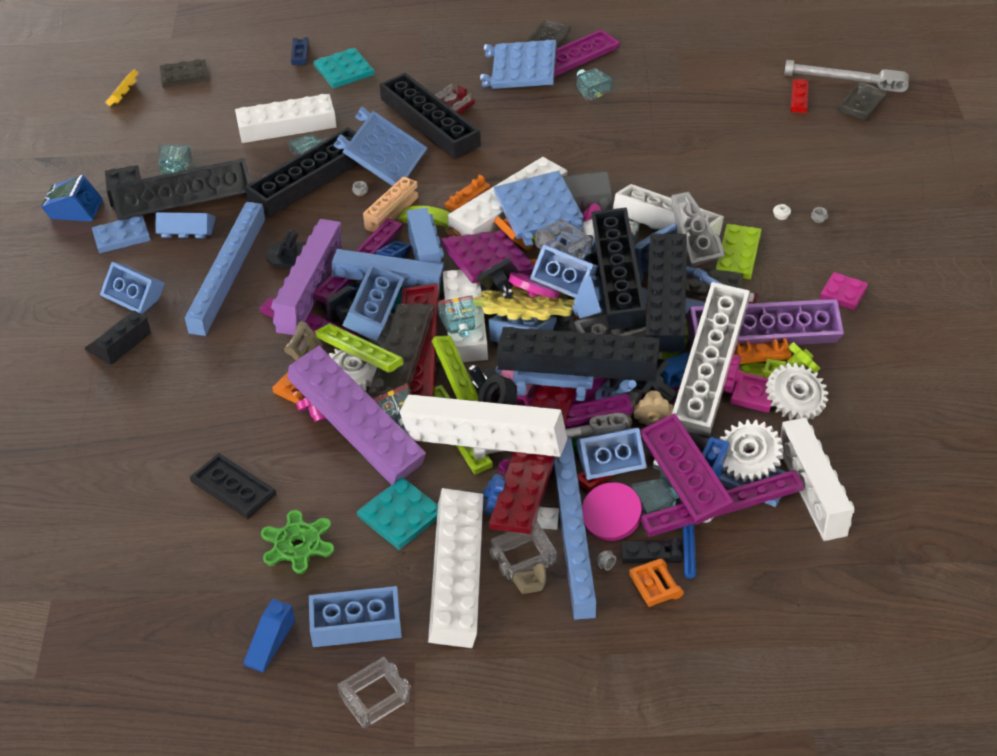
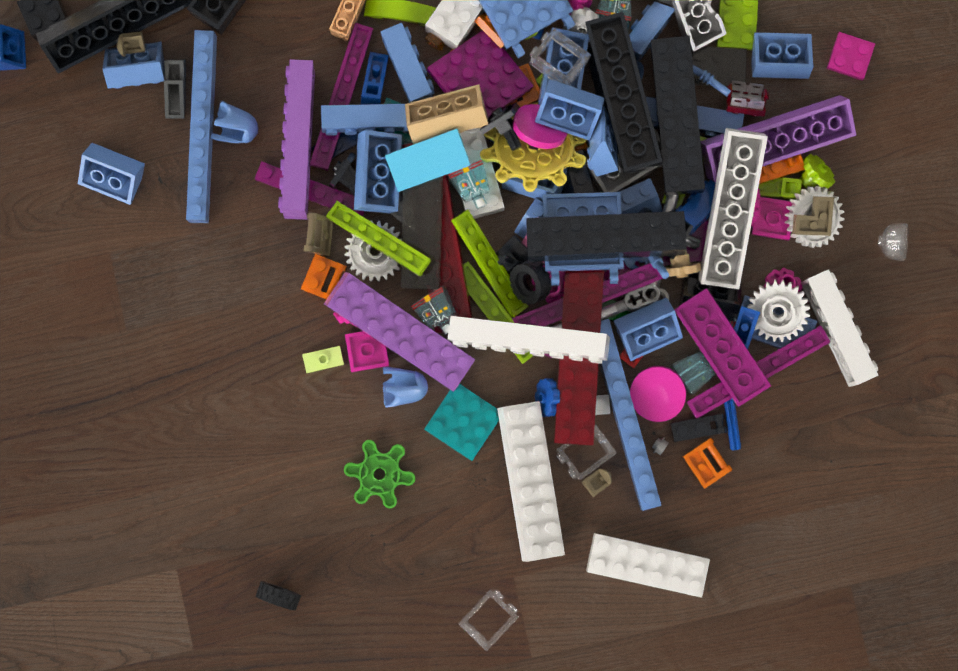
camera: 15 degrees left, 40 degrees up
(120, 234) = (65, 89): medium blue plate -> none
(120, 337) = (121, 245): black slope -> none
(147, 626) = (278, 596): none -> black tyre
(188, 205) = (131, 43): none -> dark tan plate
(214, 240) = (175, 88): none -> dark grey slope
(233, 485) = (299, 415): black tile -> none
(257, 265) = (236, 125): none -> medium blue hair
(269, 634) = (383, 579): blue slope -> none
(274, 444) = (323, 359): none -> yellowish green plate
(285, 252) = (259, 95): black piece -> none
(319, 441) = (365, 352): none -> dark pink plate
(348, 468) = (403, 387): none -> medium blue hair
(354, 616) = (454, 550): medium blue brick -> none
(421, 288) = (428, 160): none -> medium azure tile
(447, 262) = (446, 112): none -> tan slope
(571, 665) = (647, 565): none -> white brick
(776, 278) = (782, 55): none -> medium blue slope
(796, 386) = (819, 222): none -> dark tan plate
(880, 420) = (894, 241): none -> clear cylinder

